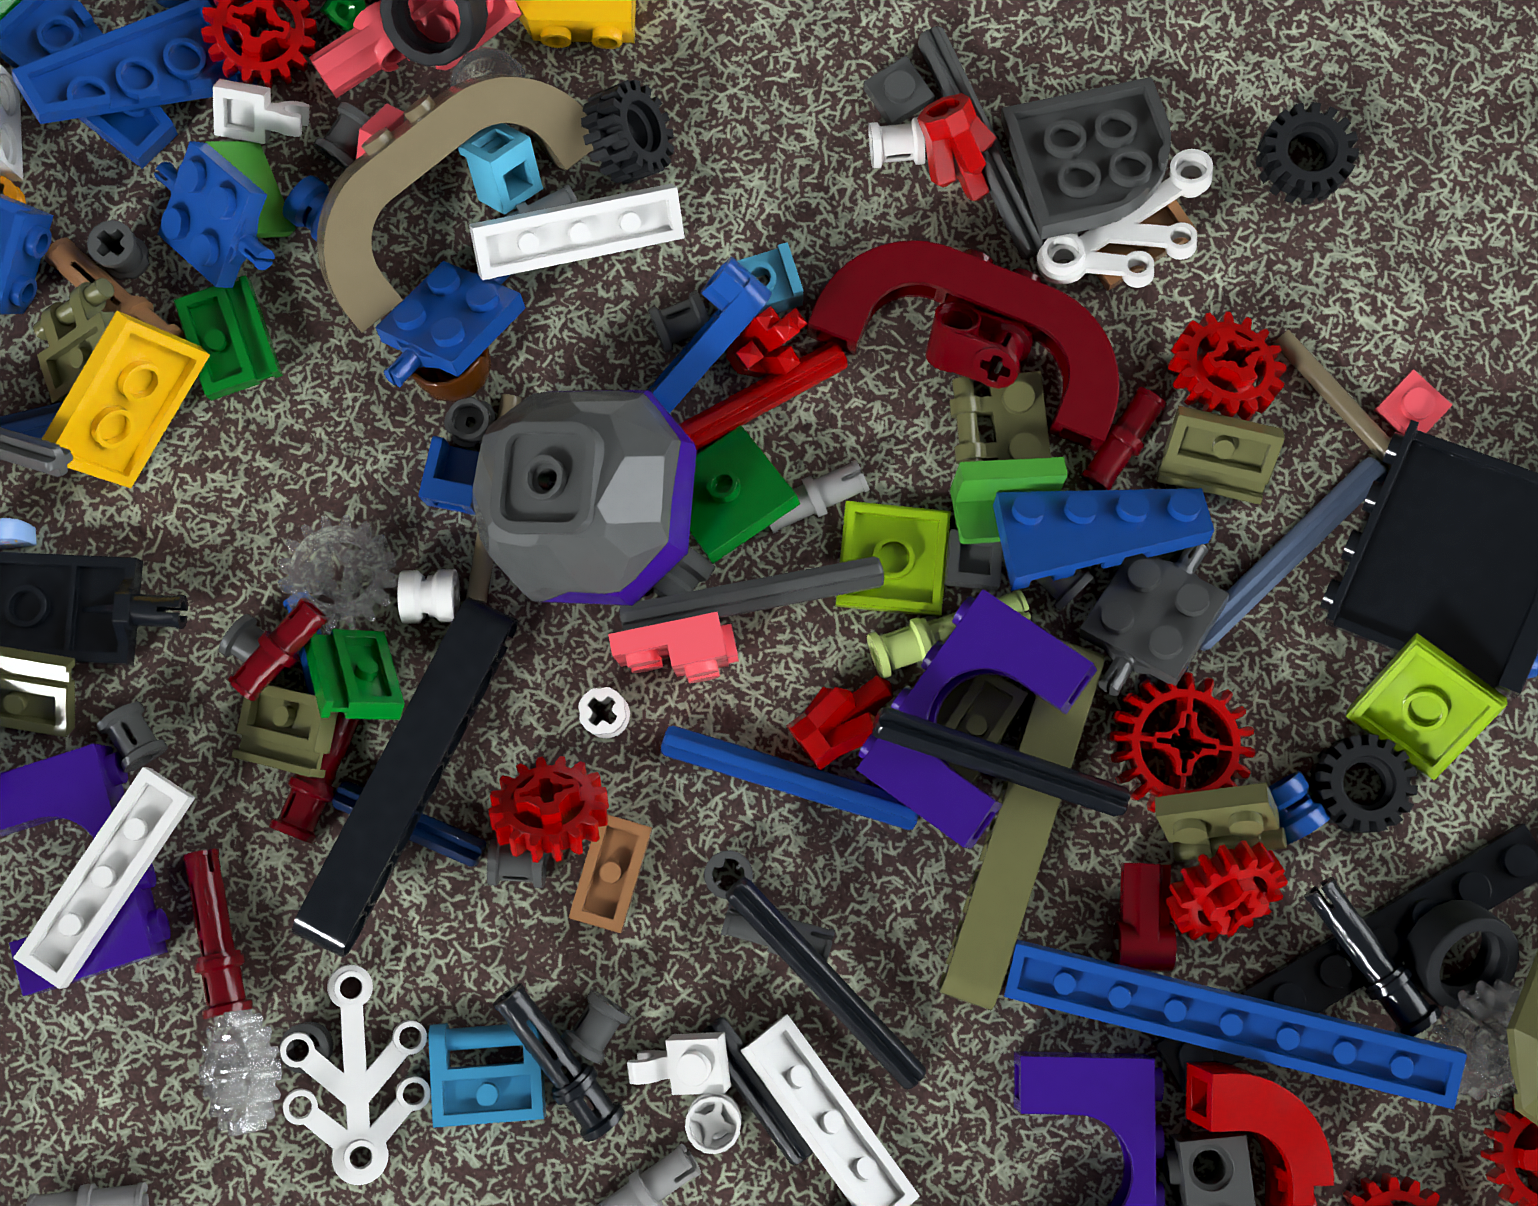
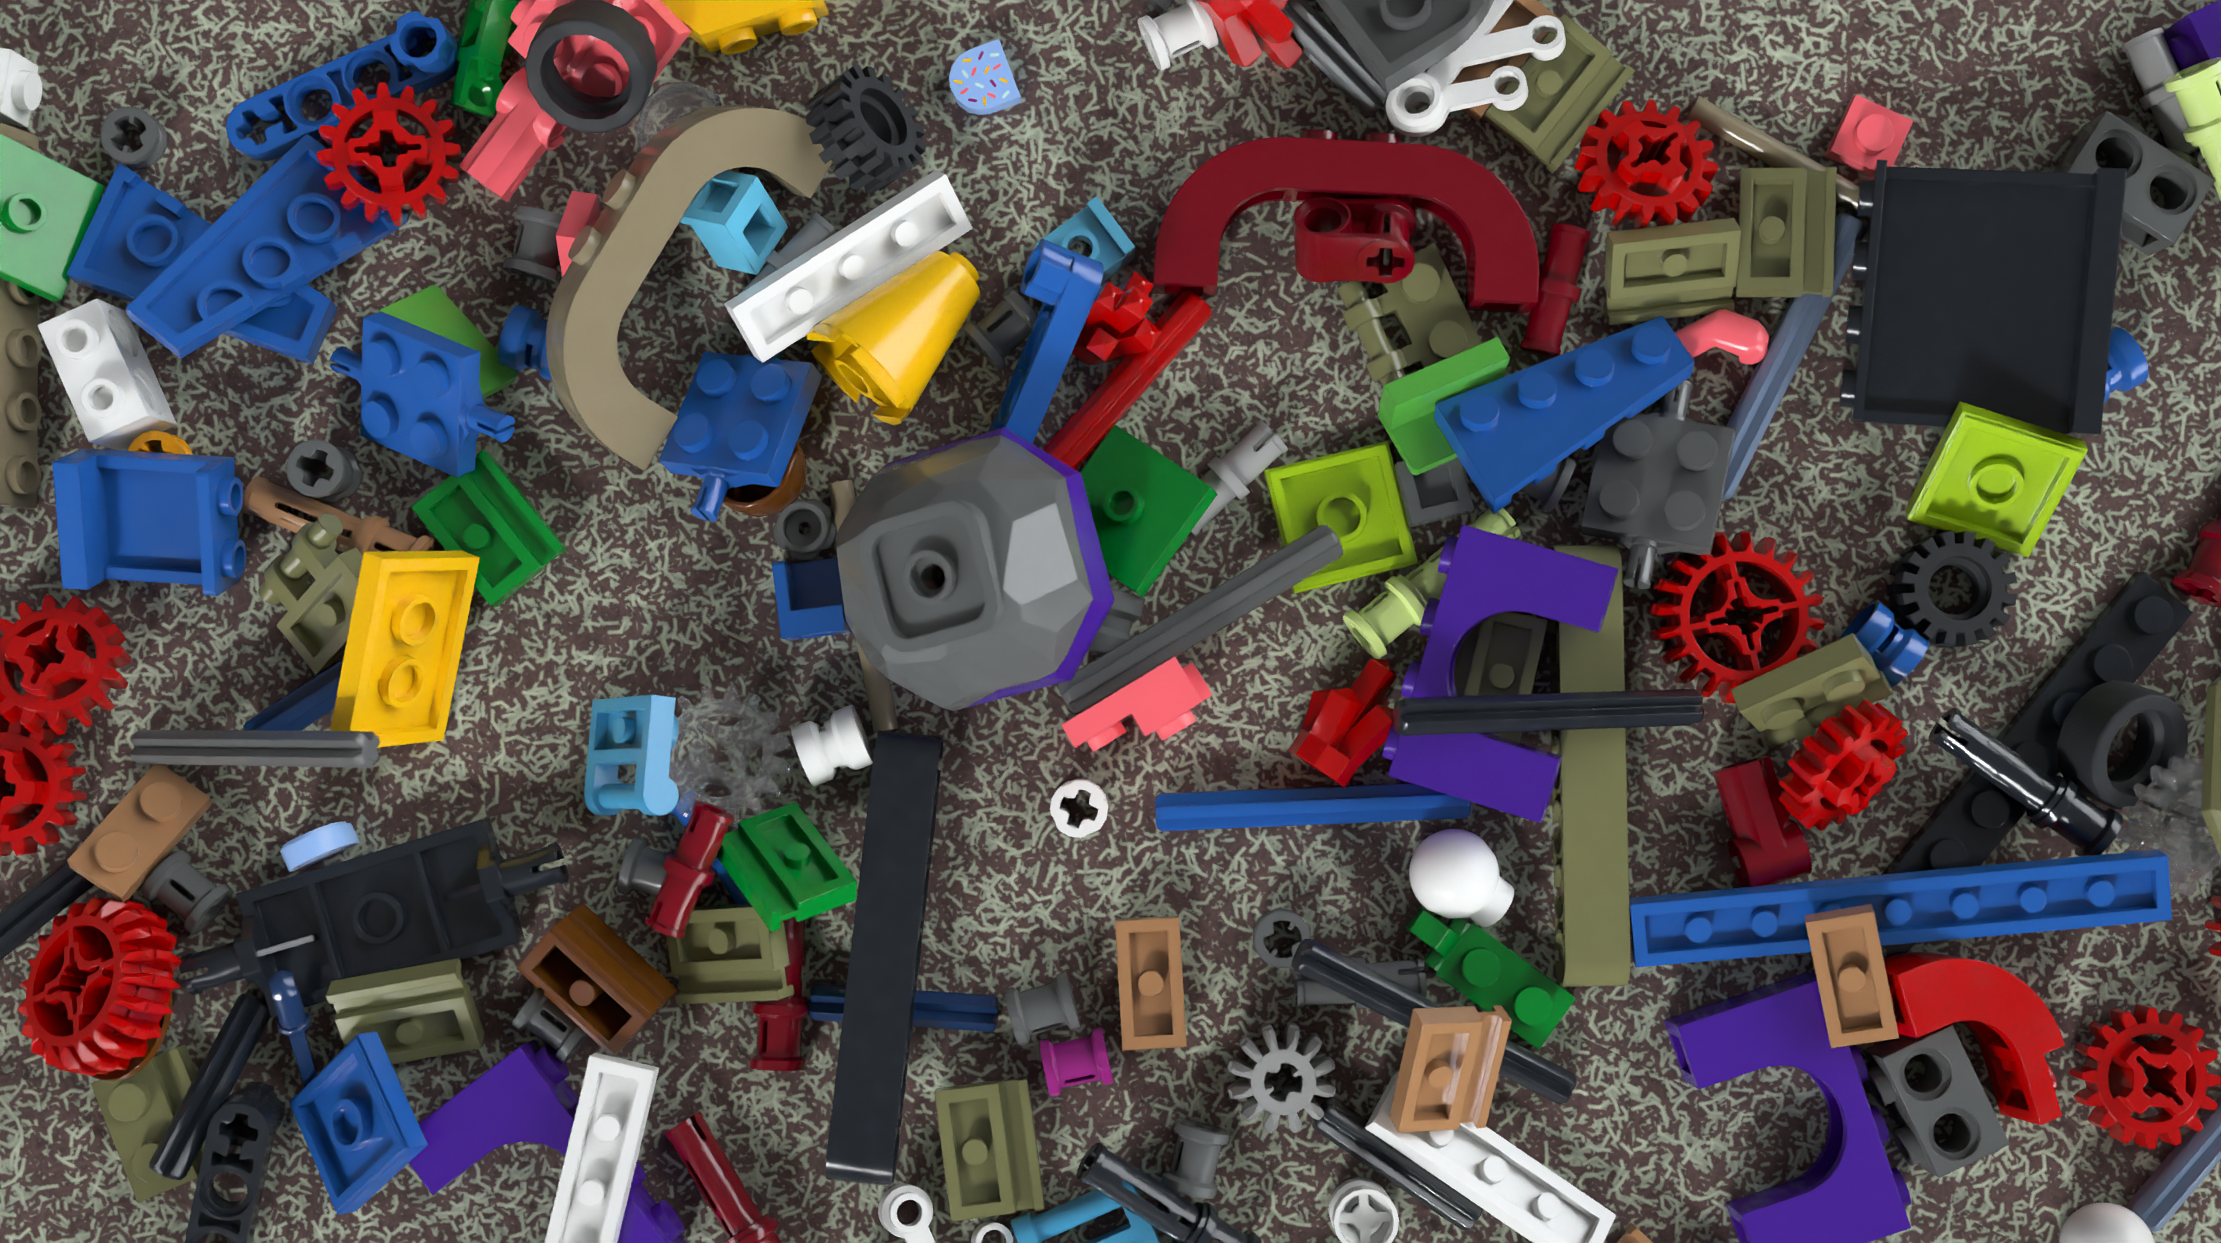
camera: 20 degrees left, 5 degrees up
(175, 712) = (597, 979): none -> reddish brown brick
(248, 115) = (413, 258): white plate -> none
(274, 530) = (631, 733): none -> dark azure plate
(434, 960) = (989, 1148): none -> olive plate
(528, 914) = (1075, 1062): none -> magenta bush
(549, 809) = (1058, 938): red gear -> none
(596, 295) = (898, 333): none -> yellow cone
(692, 1004) = (1269, 1059): none -> light grey gear
(692, 1063) = (1316, 1159): white plate -> none
(733, 130) = (983, 80): none -> light blue tile
(823, 1022) = (1449, 1068): none -> medium nougat plate
(887, 874) = (1459, 878): none -> white piece
(887, 965) = (1492, 975): none -> green hinge
(1174, 1063) = (1851, 976): none -> medium nougat plate
(1179, 292) = (1562, 96): none -> olive plate
(1251, 519) = (1729, 332): none -> coral arm
(1321, 456) = (1786, 232): none -> olive plate

